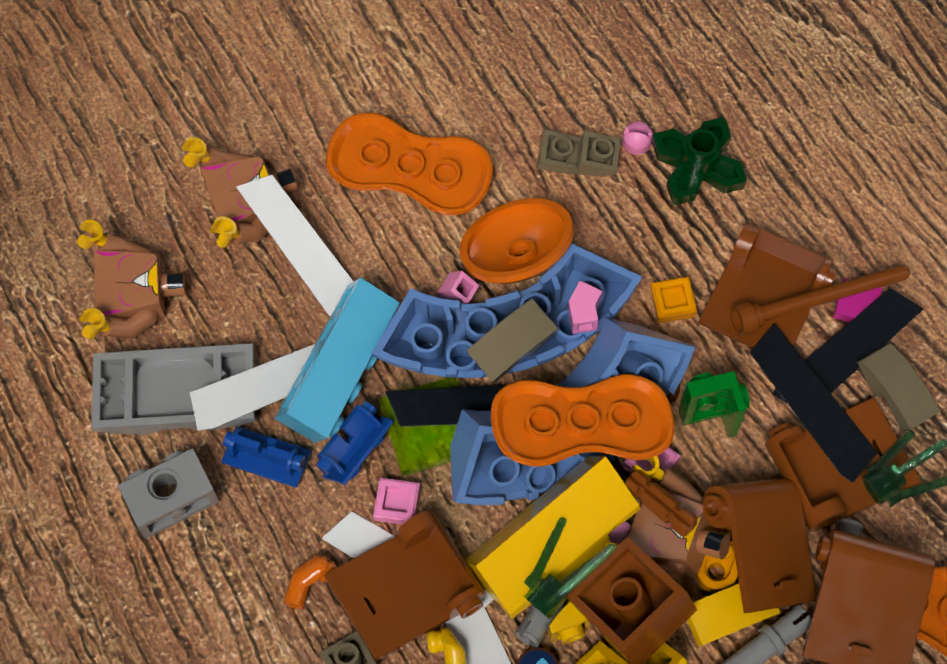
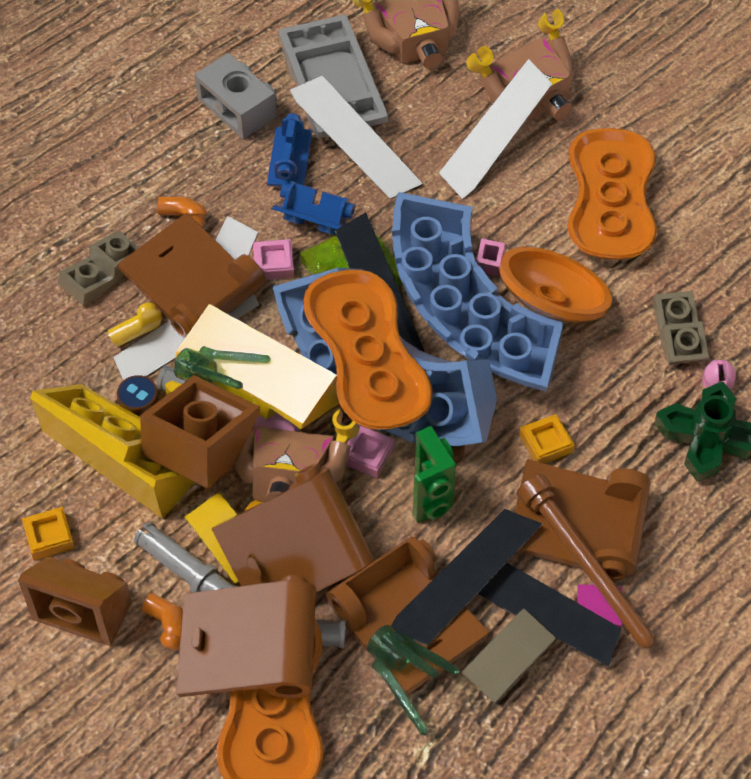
camera: 75 degrees right, 10 degrees down
(337, 362) = (379, 175): medium azure brick -> none
(512, 340) = (438, 283): dark tan slope -> none
(583, 308) = (490, 337): bright pink piece -> none
(661, 503) = (304, 435): dark orange axle -> none

